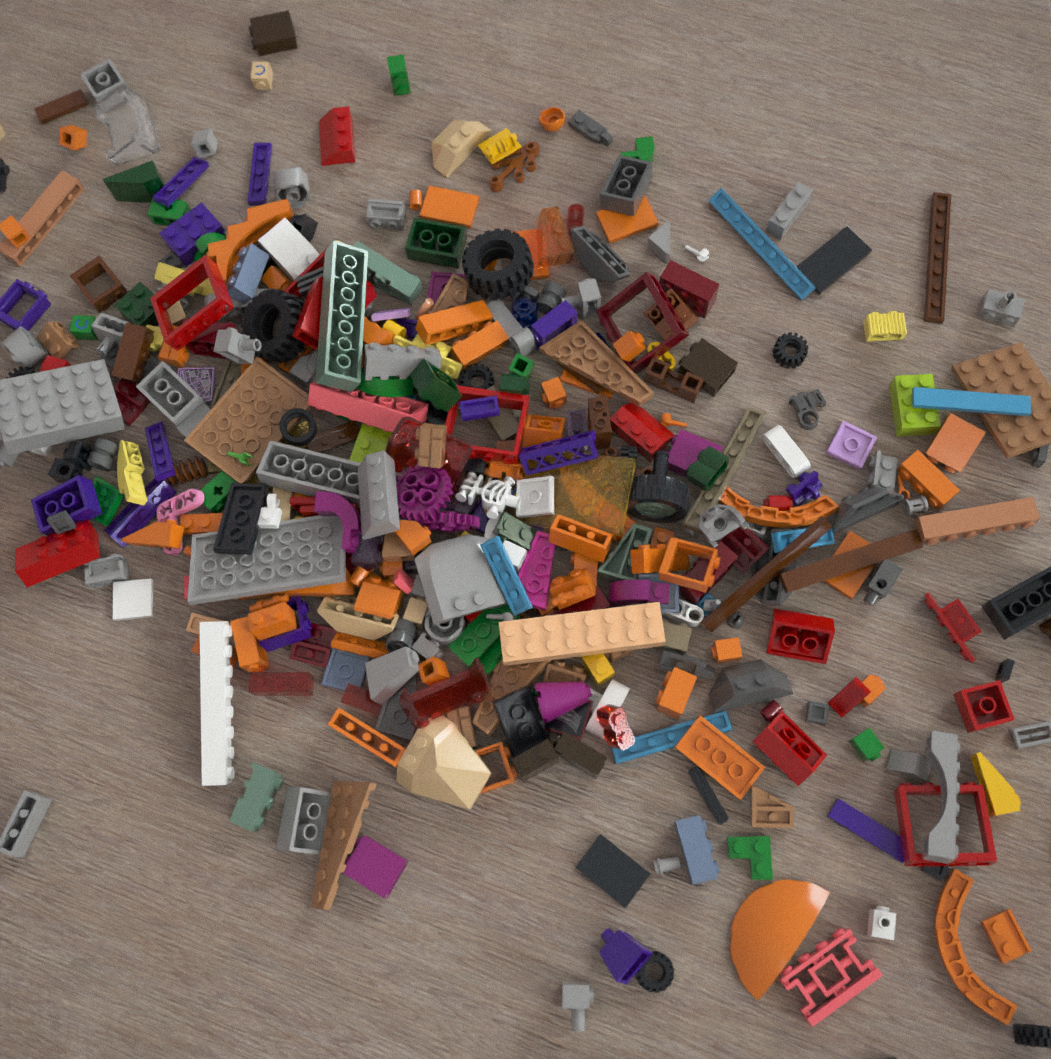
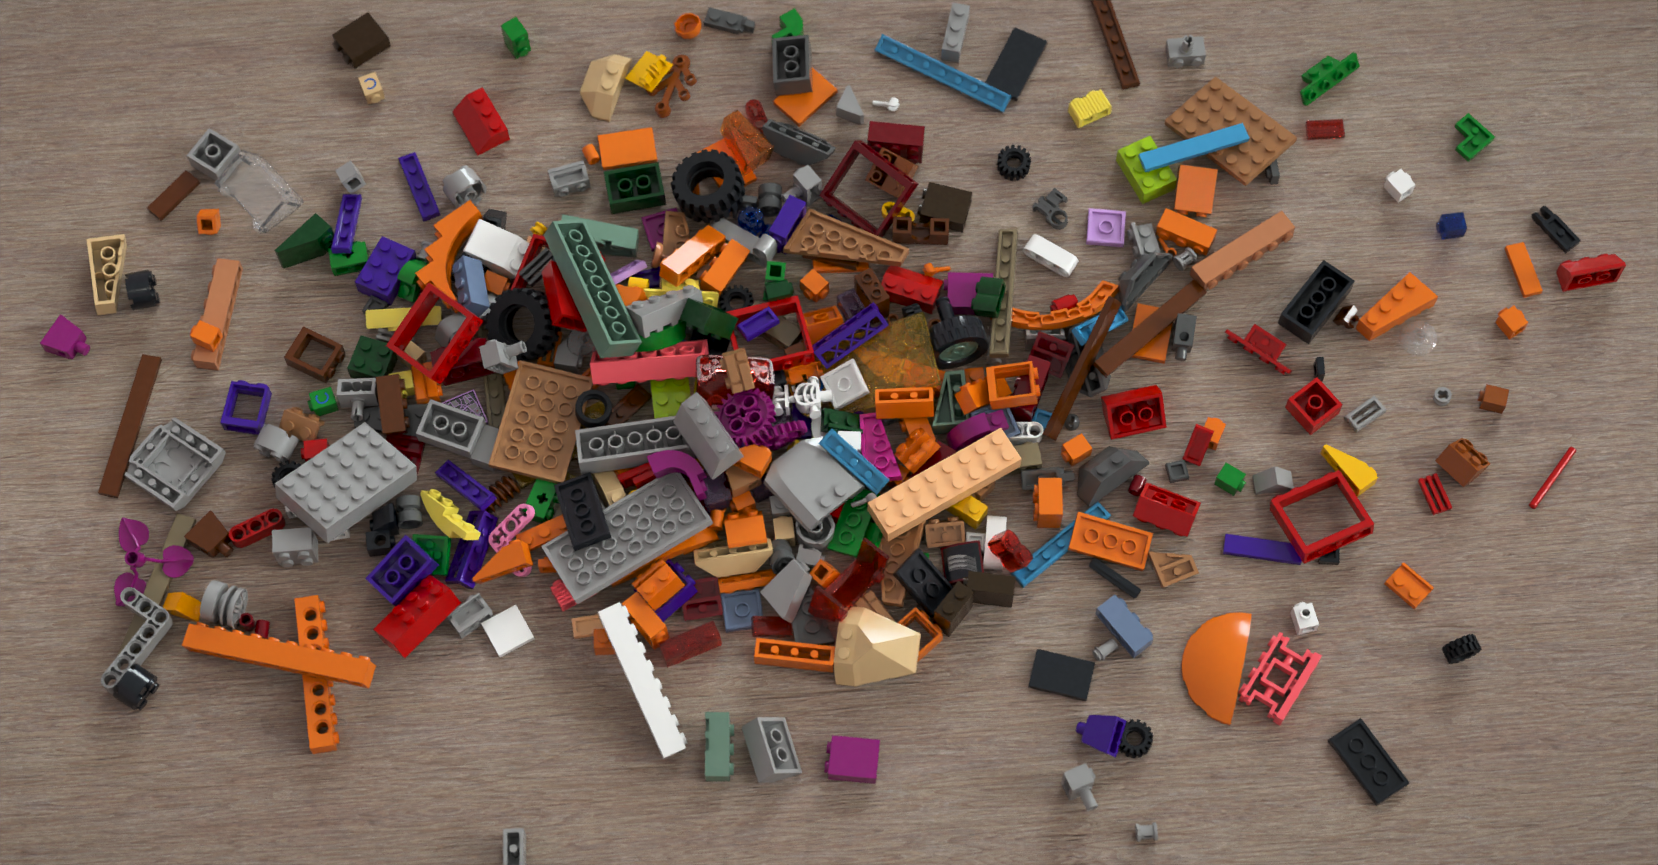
camera: 30 degrees left, 5 degrees down
(61, 522) = (411, 584): dark grey tile -> none
(243, 457) = (555, 456): bright green hand -> none
(270, 515) = (609, 497): white plate -> none
(339, 837) = (810, 745): medium nougat wing -> none
(403, 581) = (760, 506): coral tile -> none
(560, 697) = (950, 547): magenta cone -> none
(629, 345) = (868, 214): orange brick -> none
(709, 605) = (1044, 416): light grey hand -> none
(728, 521) = (1028, 334): light grey piece -> none
(757, 850) = (1177, 606): green plate -> none
(806, 489) = (1084, 280): dark purple hips -> none
(942, 754) = (1295, 458): light grey arch -> none
(952, 954) = (1372, 618): orange plate -> none

